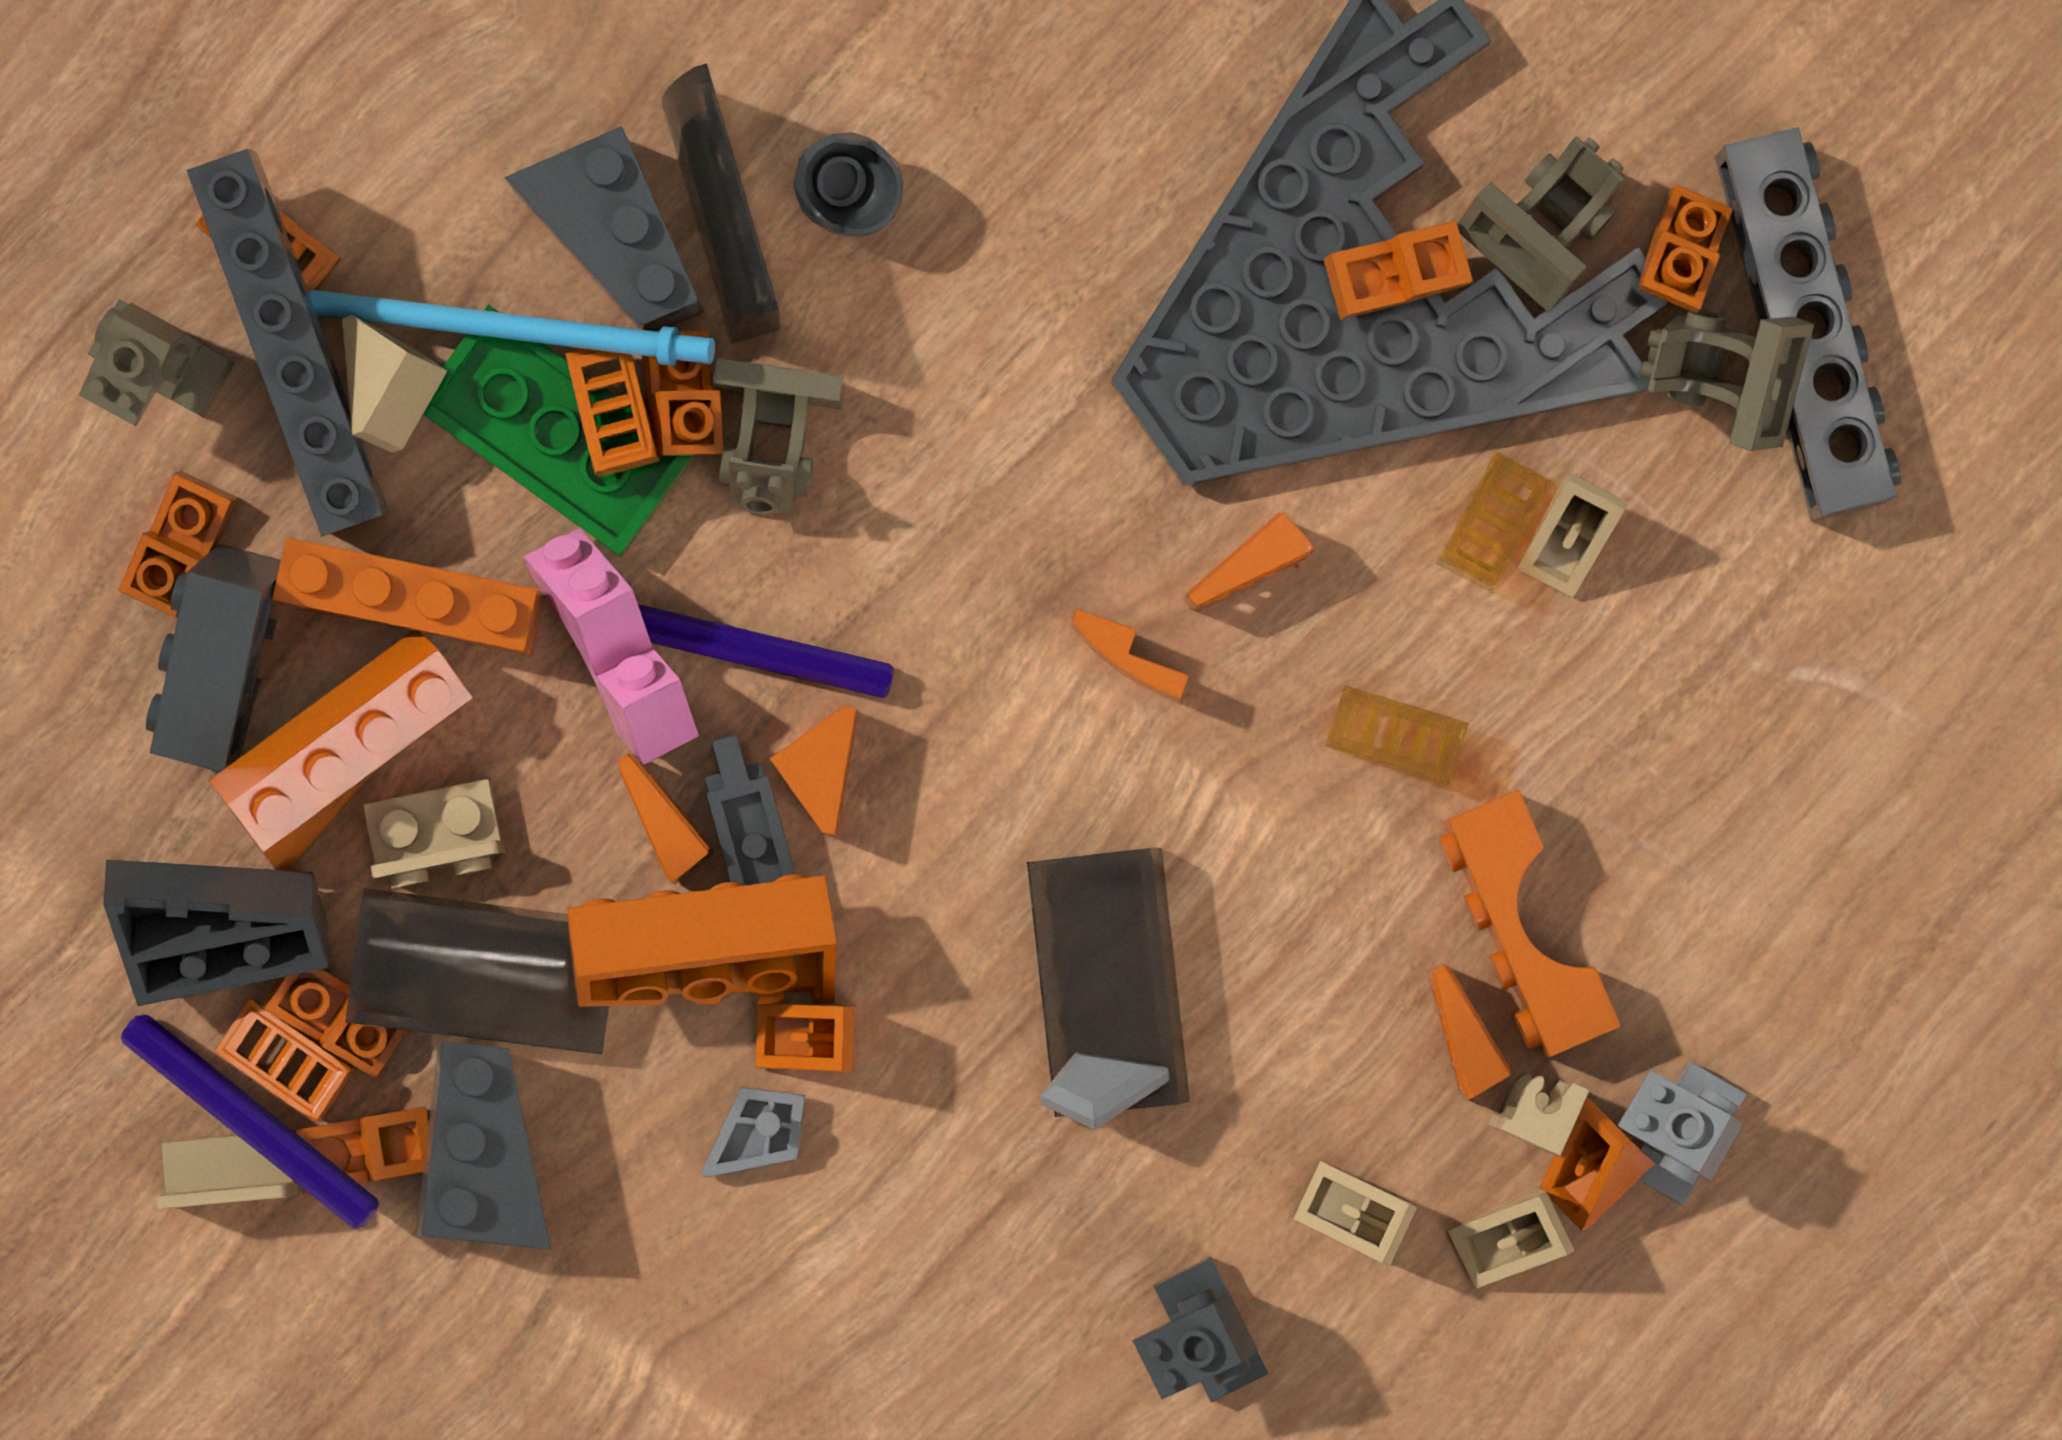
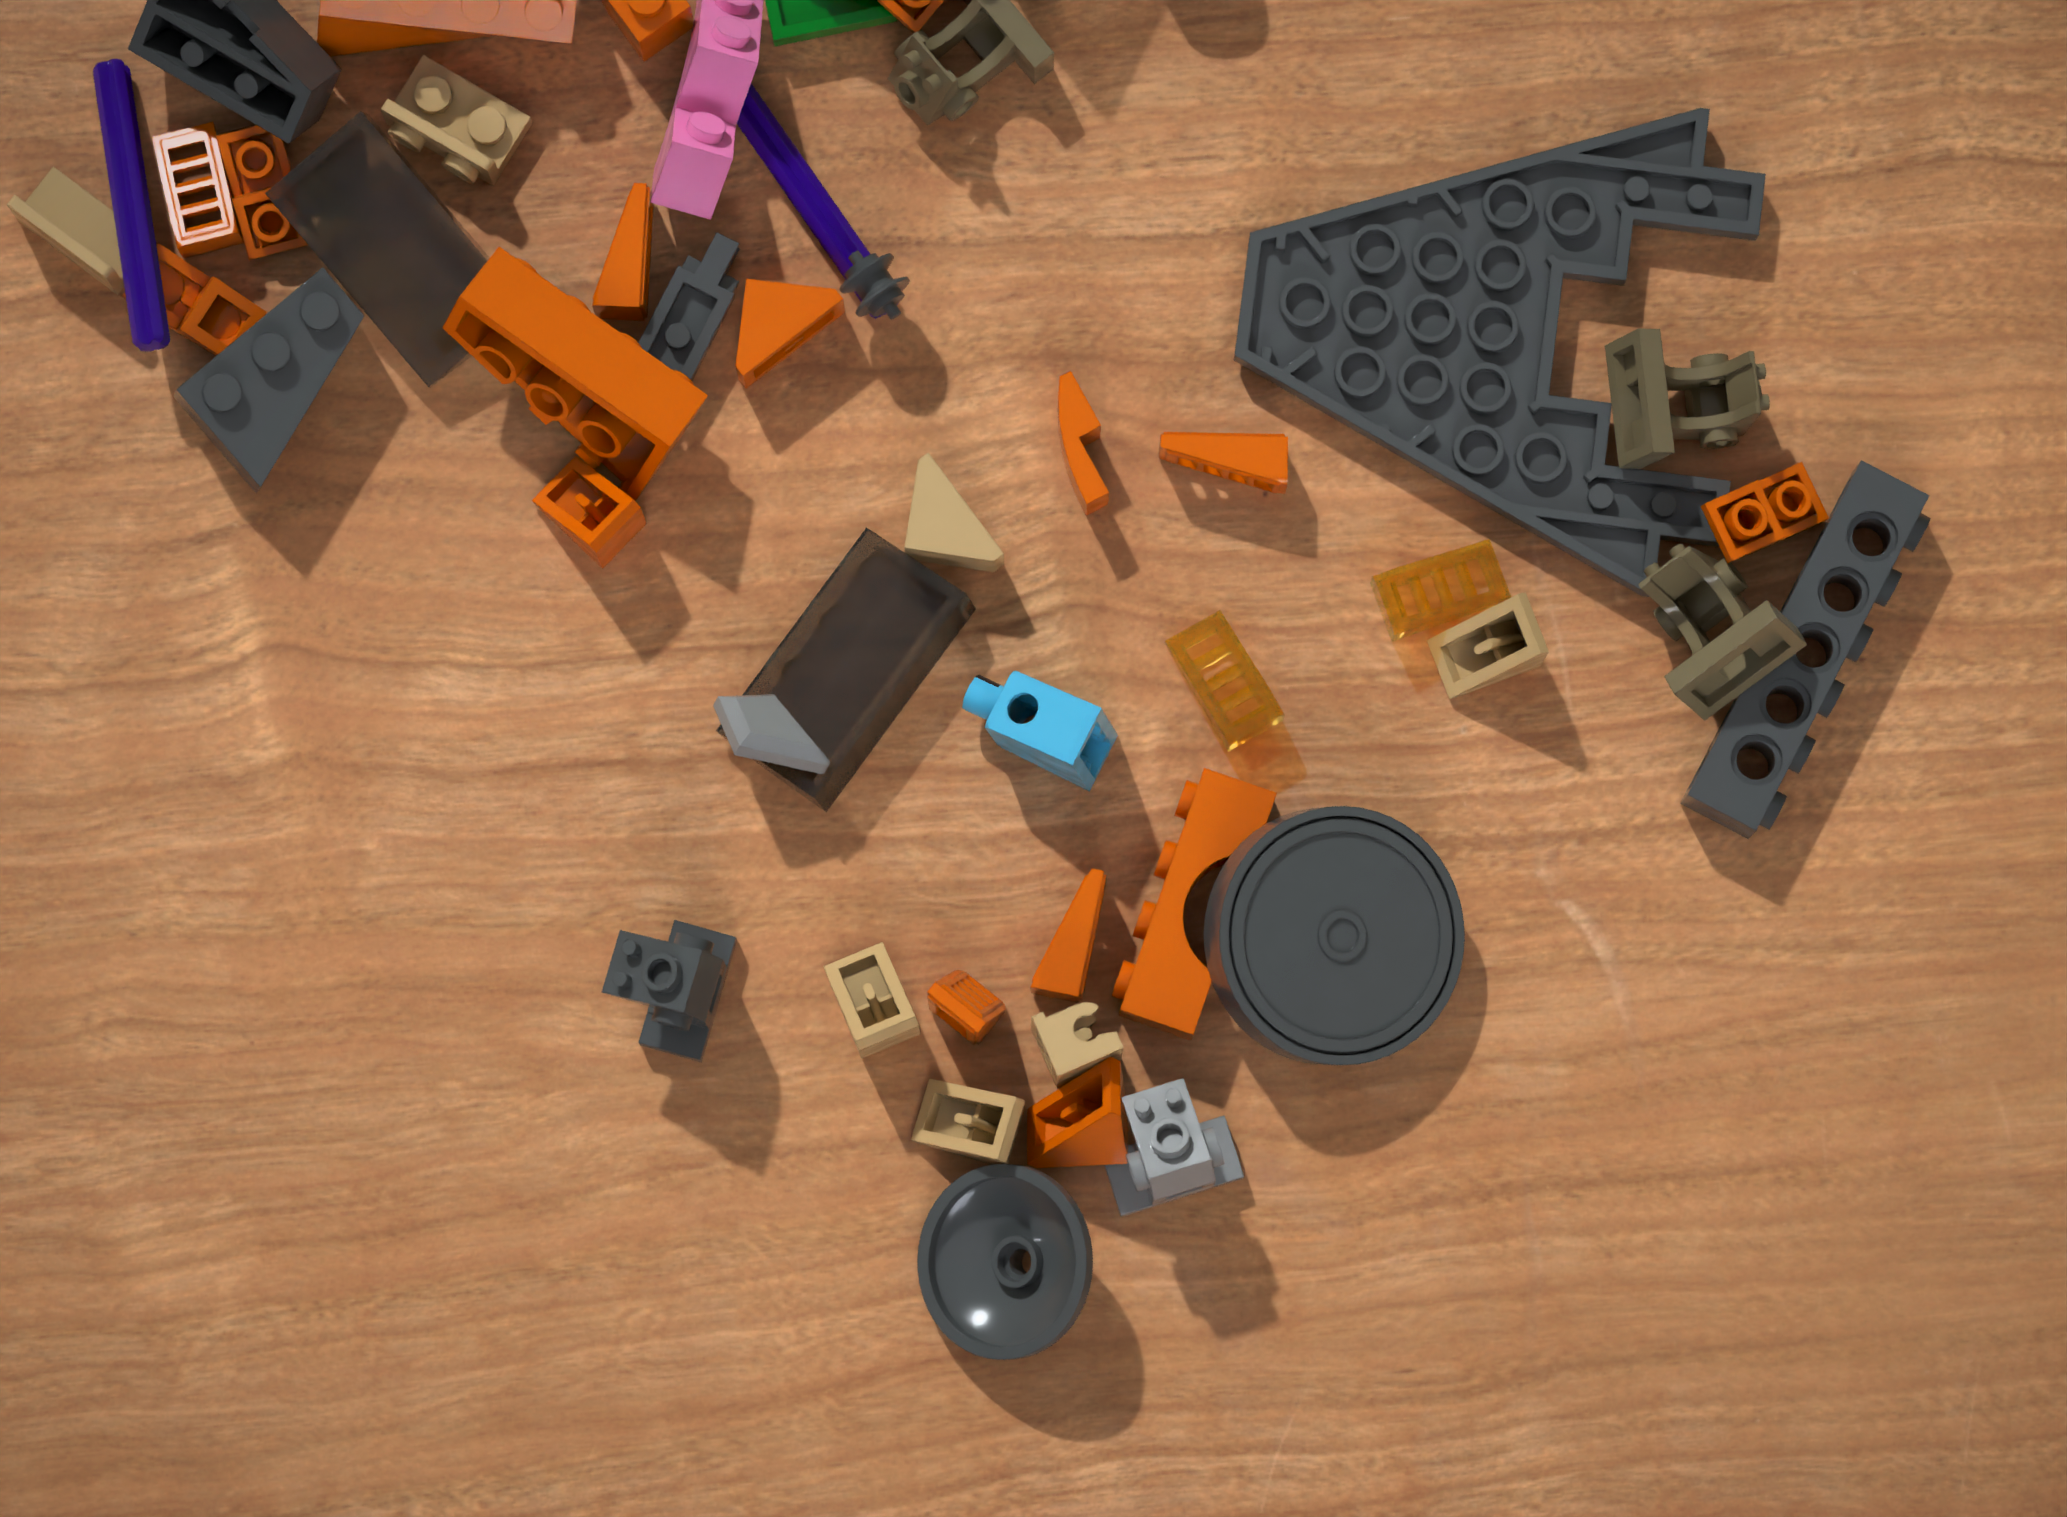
camera: 40 degrees right, 5 degrees down
(757, 1132) = (489, 547): light grey piece -> none
(870, 676) = (874, 285): none -> dark grey wheel
(1084, 808) = (944, 526): none -> tan slope
(1321, 888) = (1063, 737): none -> medium azure torso
(1398, 270) = (1534, 338): orange slope -> none
(1430, 1154) = (965, 1005): none -> orange slope
(1629, 1352) = (975, 1255): none -> dark grey dish
(1657, 857) = (1334, 935): none -> dark grey brick

